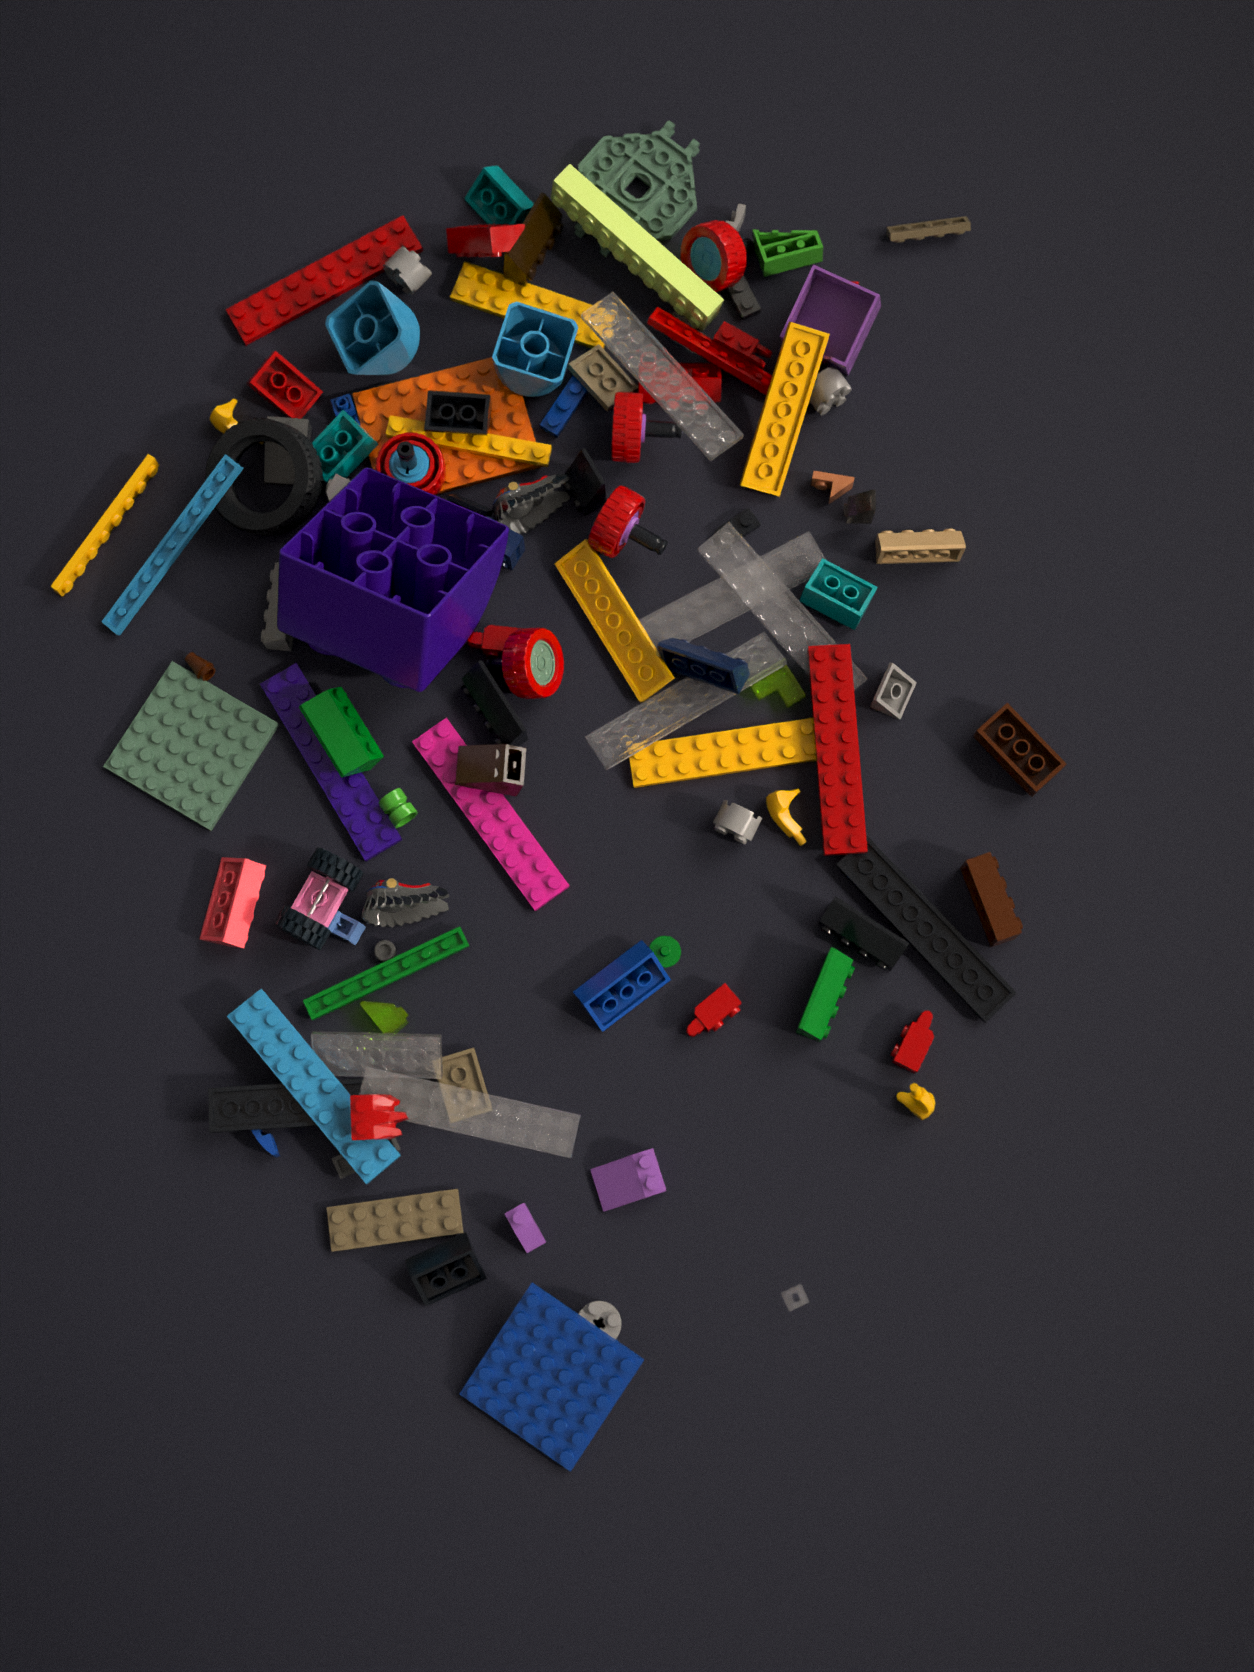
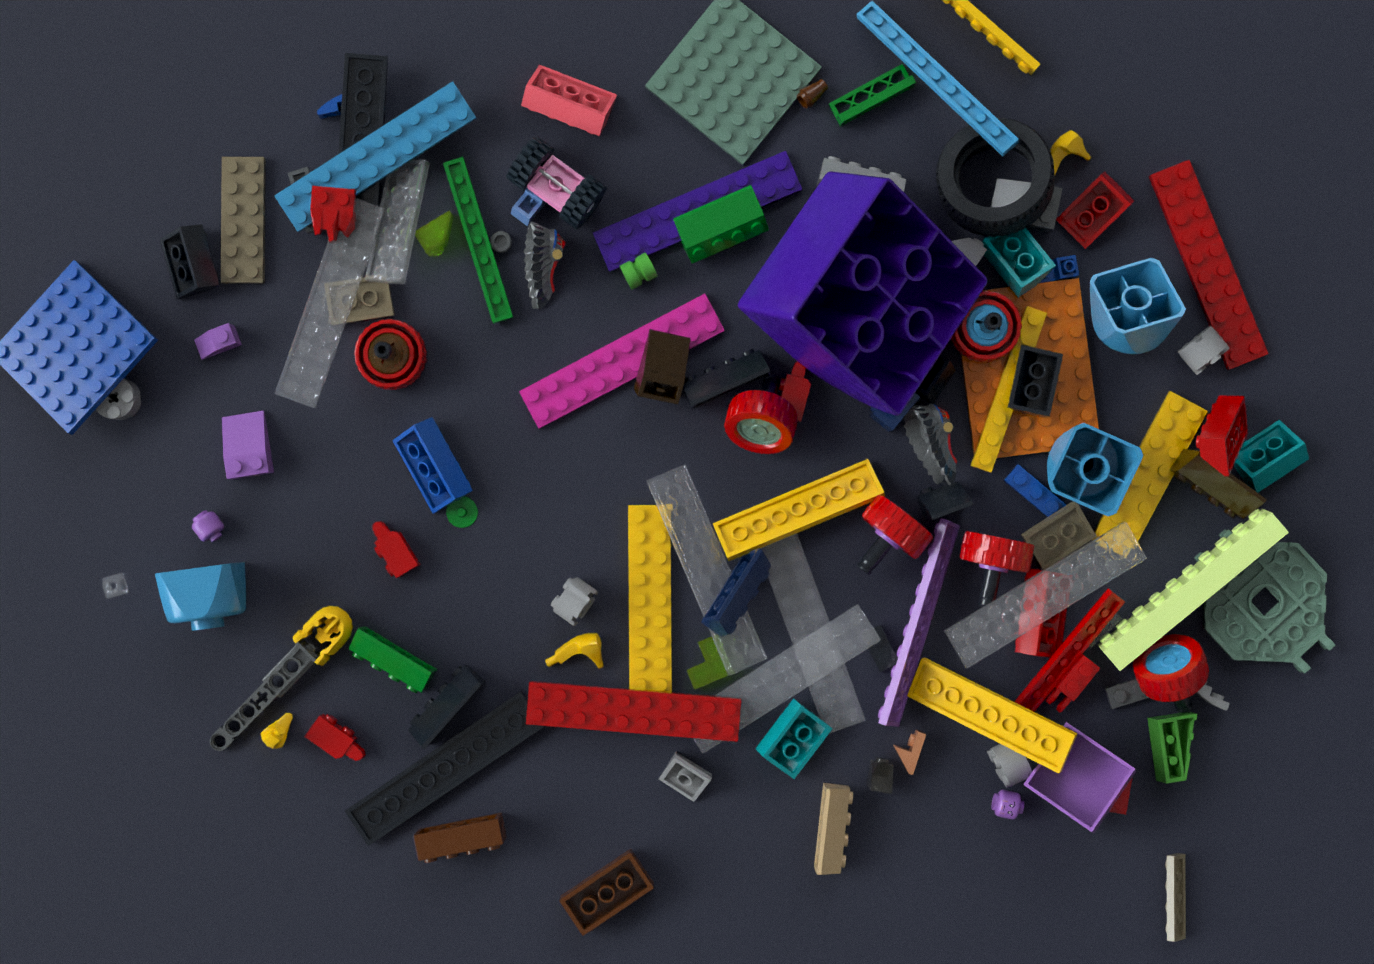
camera: 95 degrees right, 10 degrees up
(198, 602) = (876, 99): none -> green fence
(514, 1043) = (390, 354): none -> red wheel
(715, 494) = (920, 620): none -> medium lavender plate
(718, 1207) = (207, 526): none -> medium lavender head
(789, 1193) = (203, 594): none -> dark azure piece
(833, 1088) = (302, 653): none -> dark grey piece
(867, 389) = (1007, 804): none -> medium lavender head

